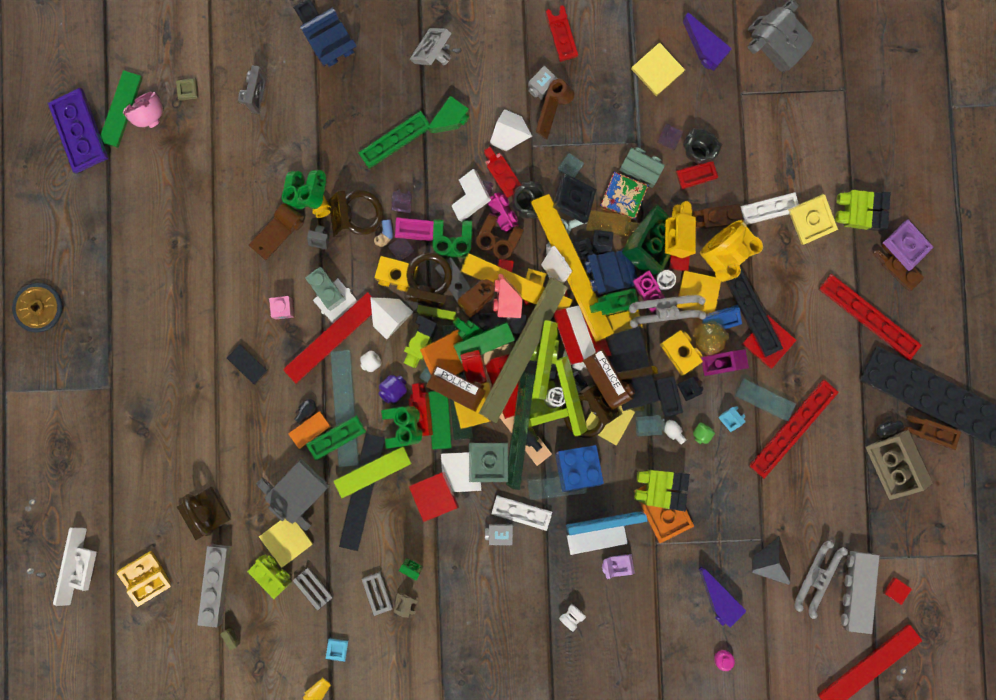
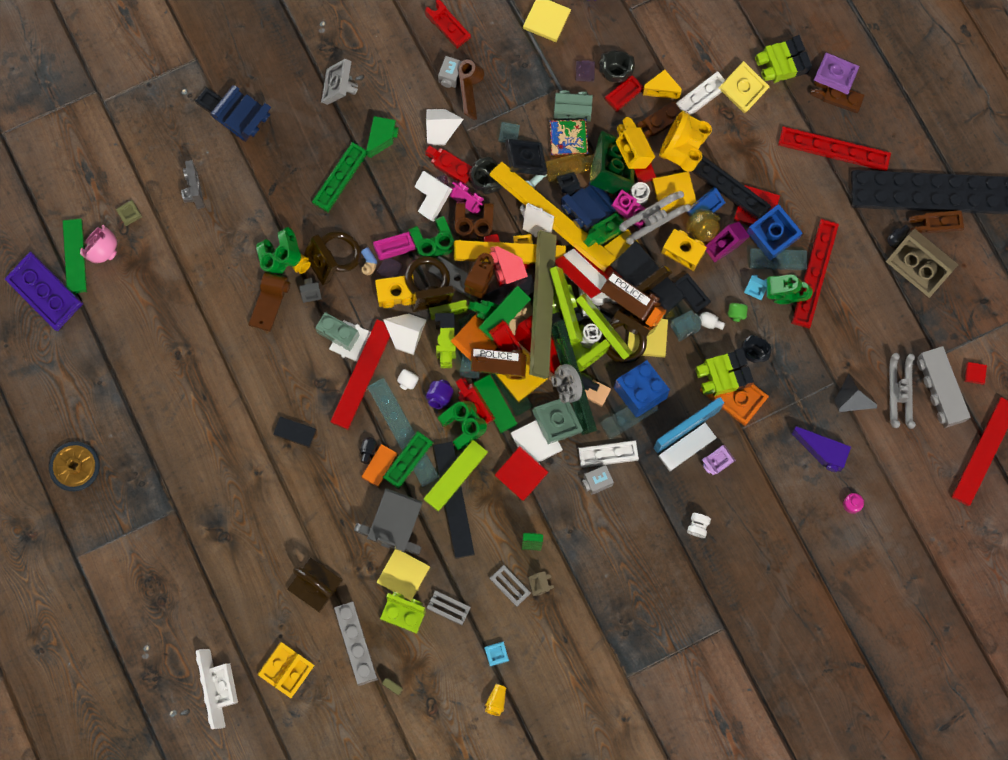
camera: 25 degrees left, 10 degrees down
(281, 307) = (304, 366): bright pink brick -> none
(401, 201) = (372, 227): clear purple tile -> none
(512, 434) = (567, 383): none -> light grey tile
(583, 248) = (554, 196): black tile -> none
(623, 408) = (656, 316): none -> orange tile
(690, 388) = (706, 277): black tile -> none
(703, 478) = (756, 349): none -> black hair
(736, 184) = (662, 86): none -> yellow slope
(759, 436) = (785, 292): none -> green piece
(773, 376) = (774, 232): none -> blue brick

